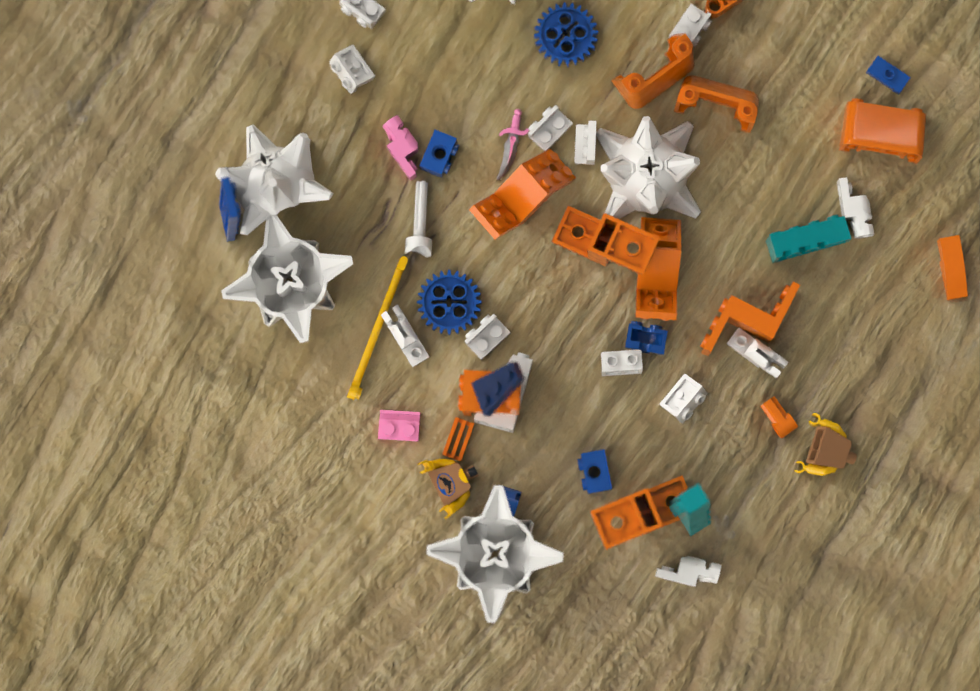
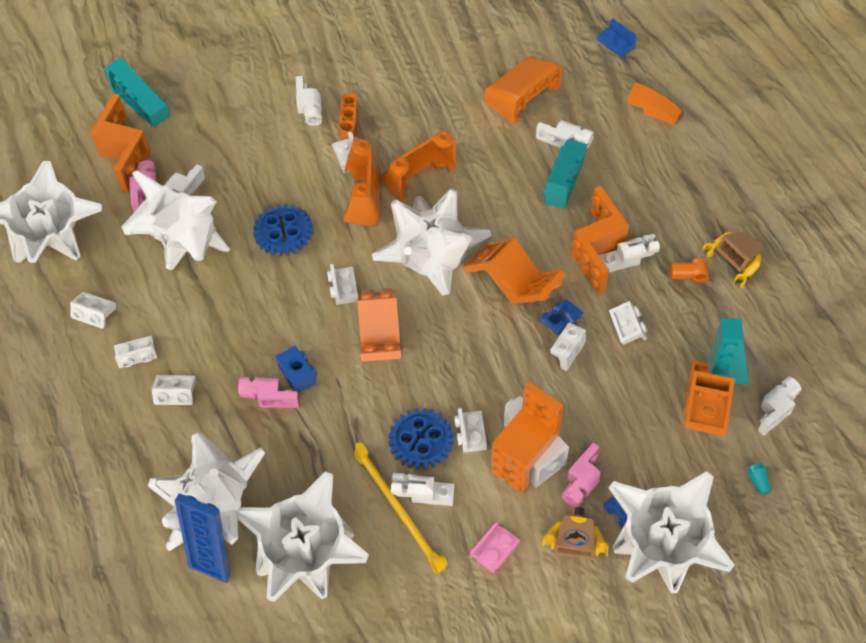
camera: 60 degrees left, 25 degrees down
(418, 242) = (354, 428): white piece -> none
(463, 423) = (531, 494): orange tile -> none
(497, 387) = (530, 413): dark blue wing -> none
(507, 456) = (582, 477): none -> bright pink plate
(511, 143) = (331, 317): piece -> none
(585, 143) = (376, 264): white bracket -> none
(595, 459) = (641, 411): blue brick -> none
(605, 240) = (463, 288): orange bracket -> none
(607, 596) = (759, 477): none -> teal cone
(888, 75) = (484, 66): blue plate -> none

